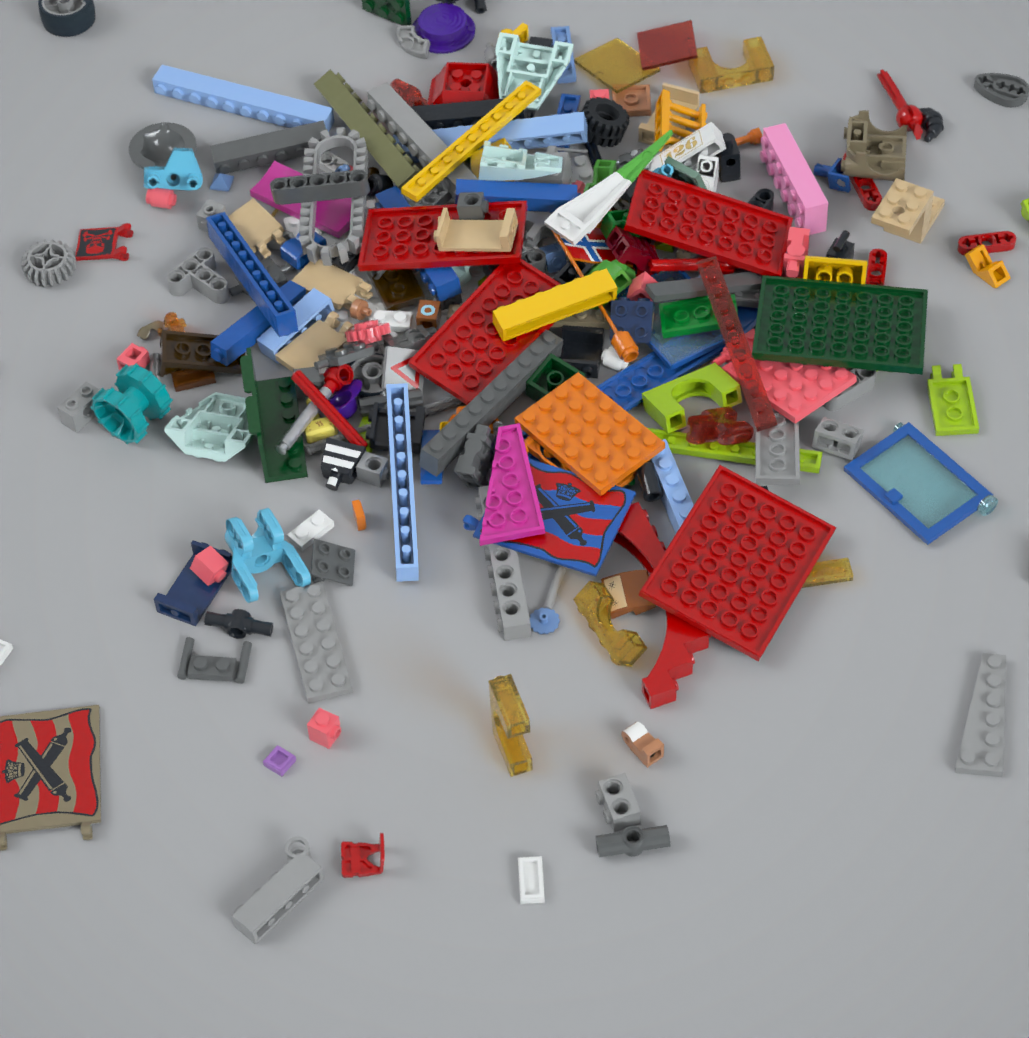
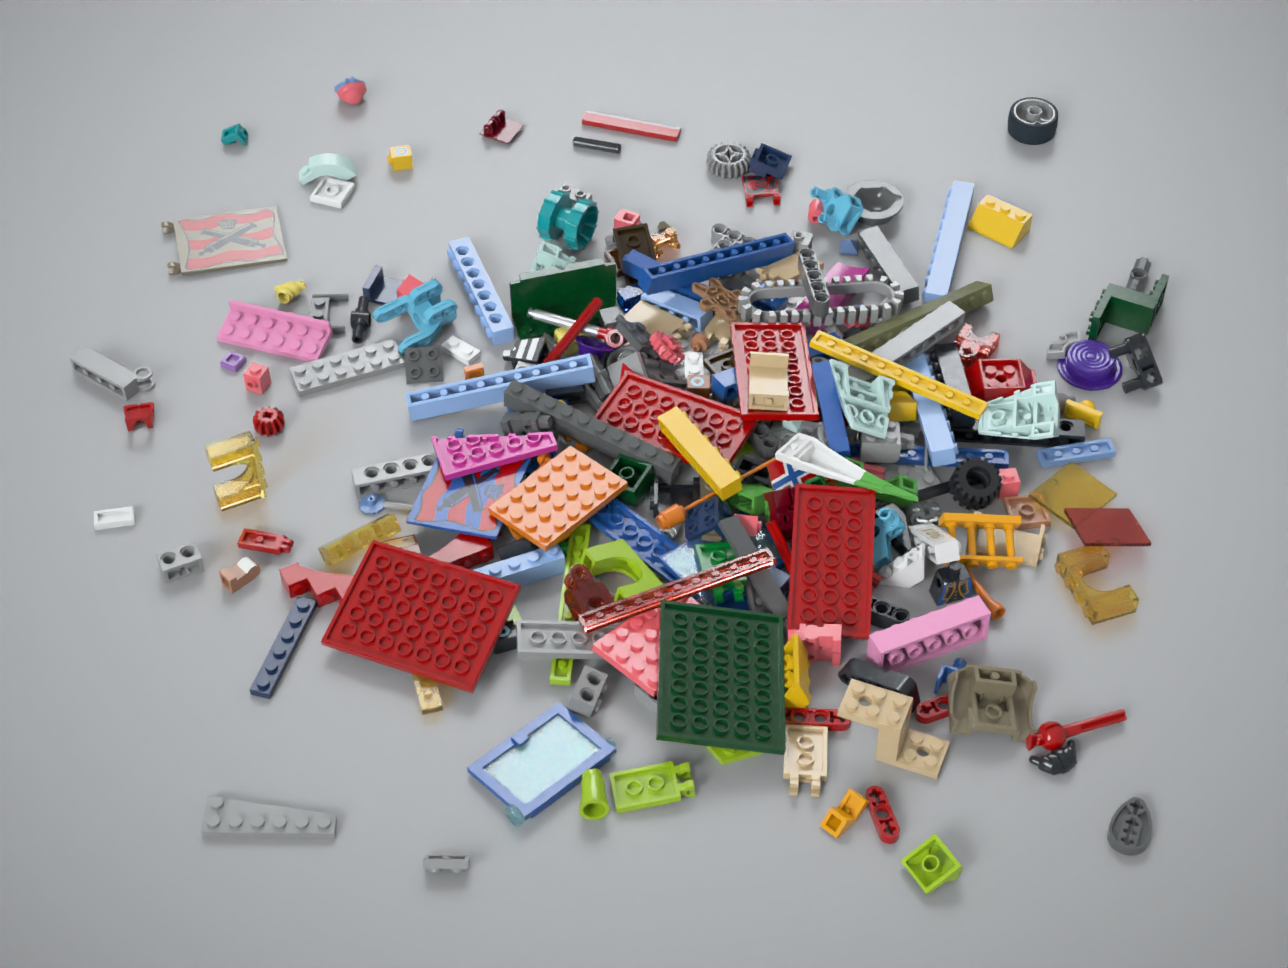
camera: 80 degrees right, 5 degrees down
(66, 226) = (769, 161): none -> dark blue plate
(167, 698) = (289, 290): none -> light yellow animal
(215, 503) = (480, 291): none -> light blue brick
(220, 56) = (1000, 221): none -> yellow slope
(242, 713) = (275, 331): none -> bright pink bracket
(264, 365) = (629, 296): none -> clear blue brick
(305, 278) = (718, 299): none -> medium nougat plate
(400, 716) = (268, 421): none -> red gear
(472, 206) = (799, 376): dark grey brick -> none
(594, 720) = (264, 542): none -> red hinge
(646, 839) = (142, 574): dark grey piece -> none
(685, 174) = (892, 538): sand green plate -> none
(750, 703) = (283, 647): none -> plate
(841, 247) = (835, 683): black brick -> none
(851, 211) = (881, 678): none -> black beam
(936, 282) = (805, 757): none -> tan tile
(964, 441) = (593, 795): none -> lime plant

